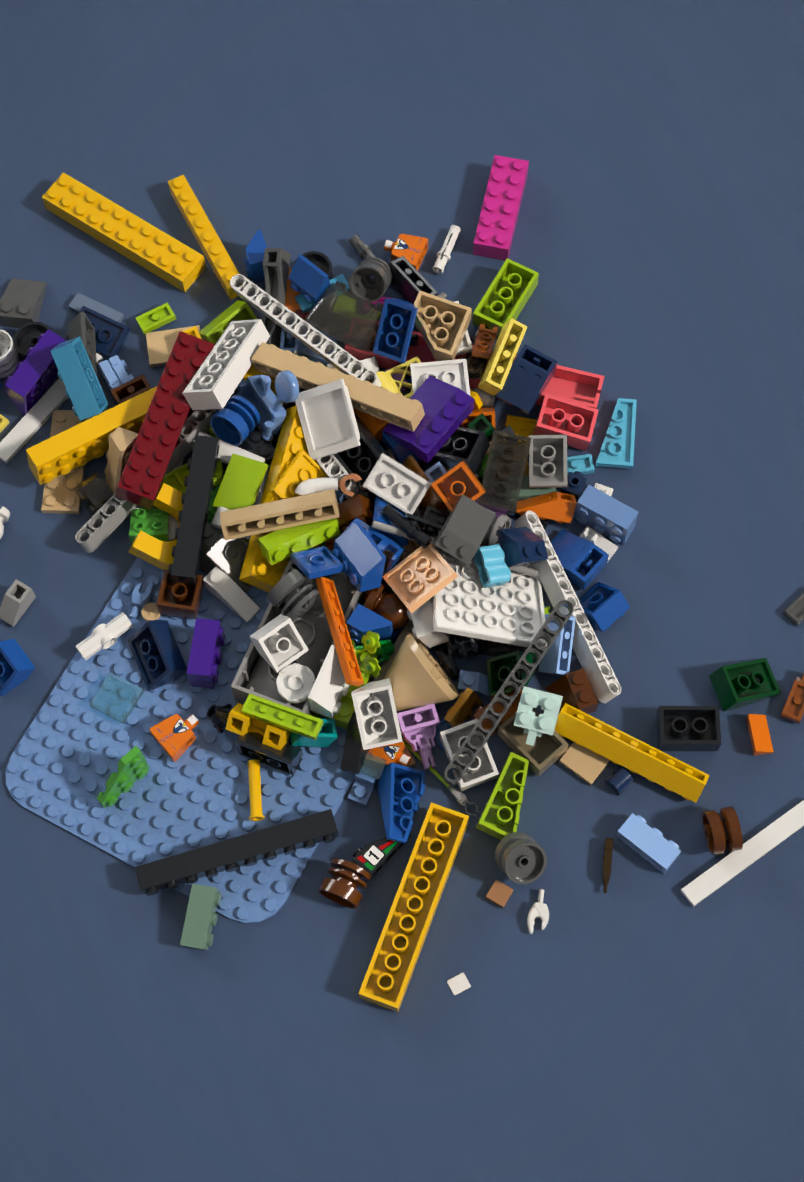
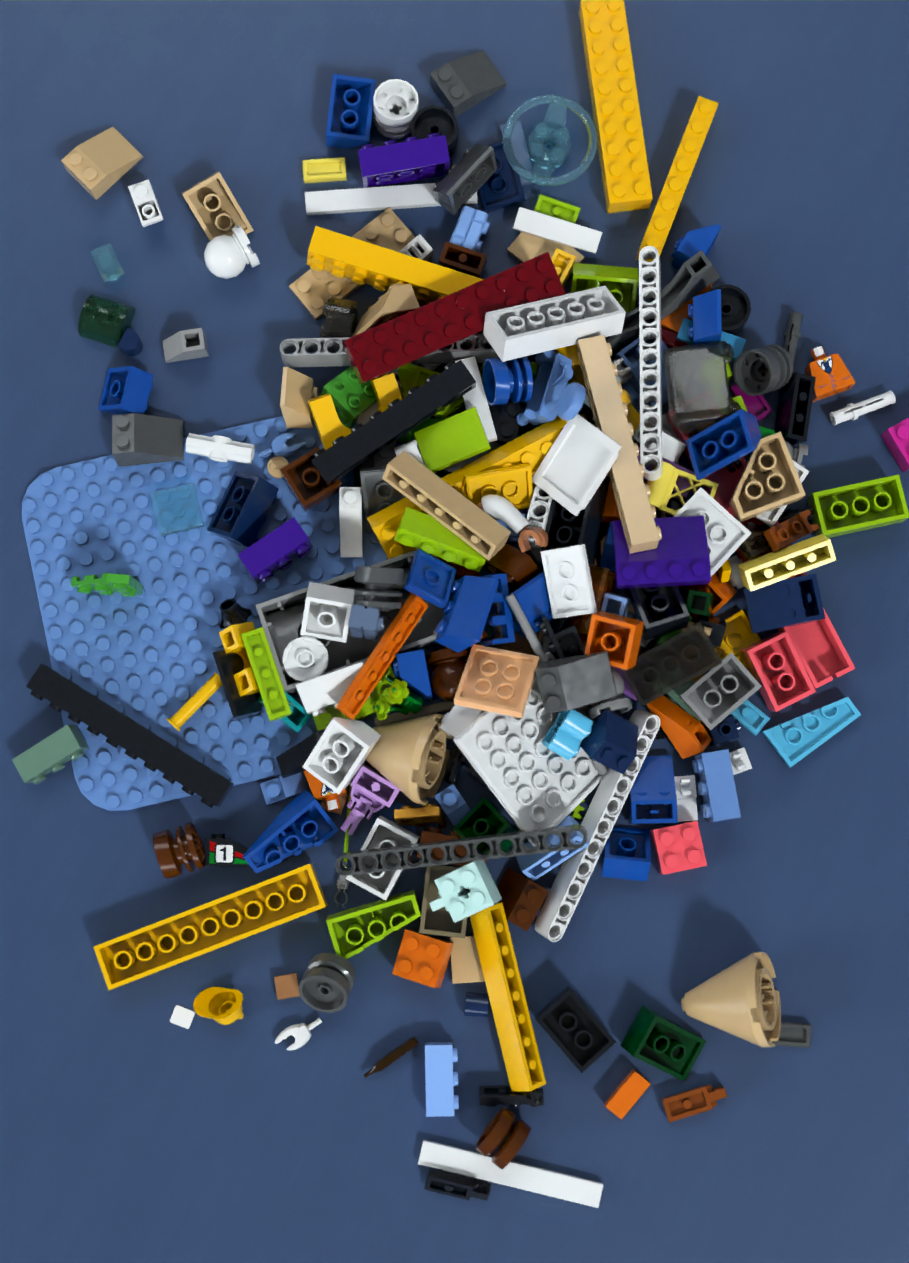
camera: 45 degrees right, 15 degrees up
(52, 678) = (146, 439): none -> dark grey slope
(79, 378) = (424, 206): dark azure brick -> none
(107, 279) = (550, 132): none -> clear light blue piece
(121, 561) = (294, 395): none -> tan slope
(168, 325) = (557, 230): none -> white tile
(175, 734) = (185, 590): orange torso -> none
(309, 622) = (365, 622): none -> sand blue brick
(373, 766) = (301, 784): clear light blue tile -> none
(412, 531) = (533, 635): black pin -> none
(473, 945) = (219, 1004): none -> yellow piece
(558, 785) = (422, 958): none -> orange brick
(625, 571) = (678, 847): none -> coral brick
(689, 819) = (502, 1095): none -> black hinge
(729, 892) = (456, 1185): none -> black hinge
(754, 612) = (740, 1001): none -> tan cone

